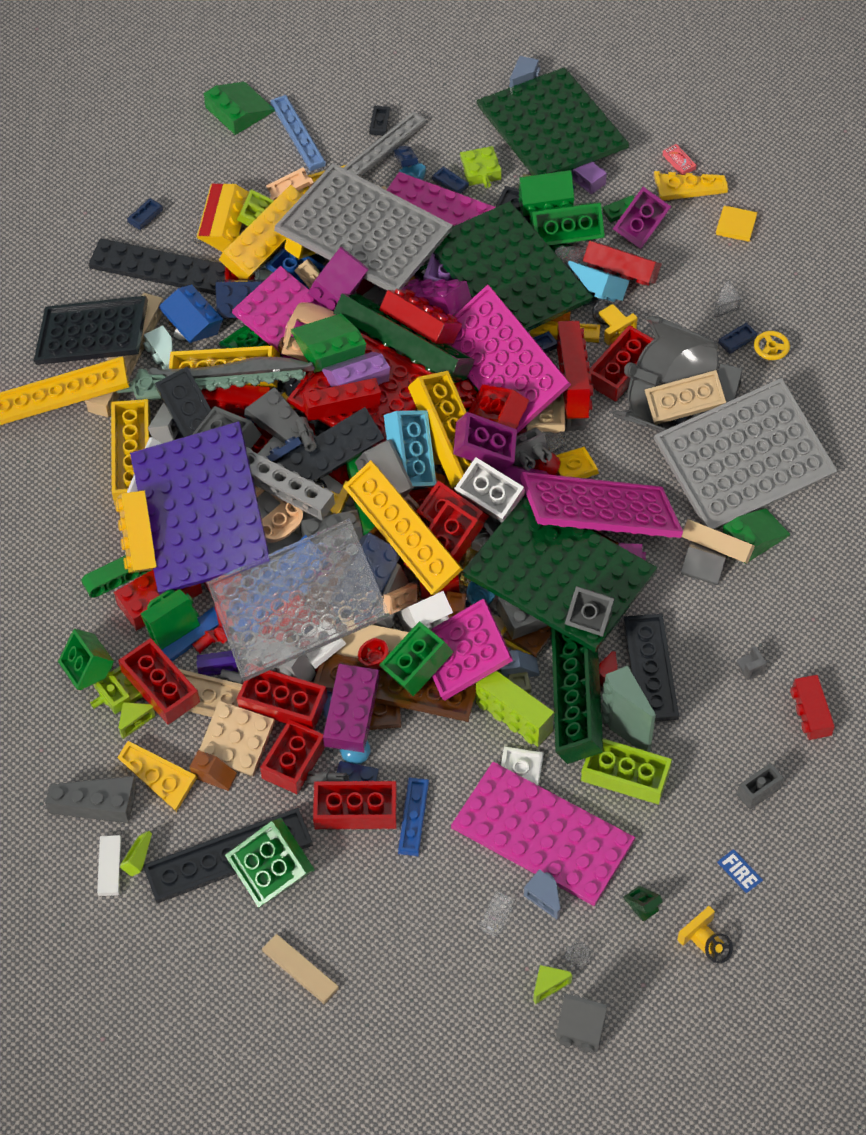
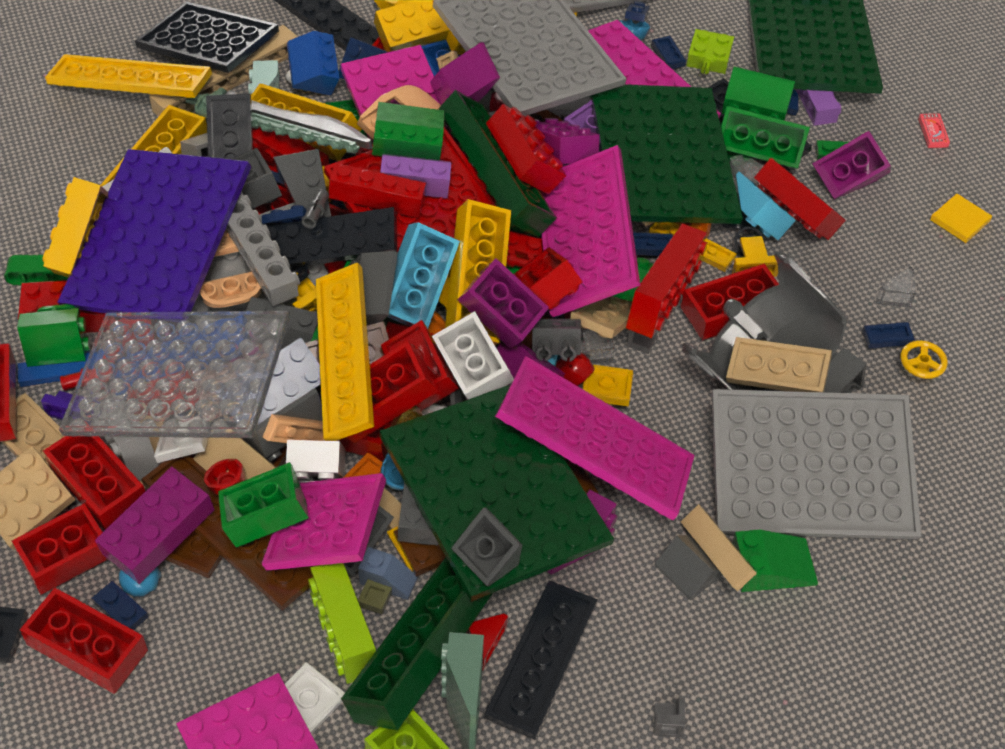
camera: 25 degrees right, 5 degrees down
(327, 775) = (81, 591): dark grey pin -> none
(413, 817) = (143, 691): blue tile -> none
(684, 186) = (919, 156): yellow wing -> none

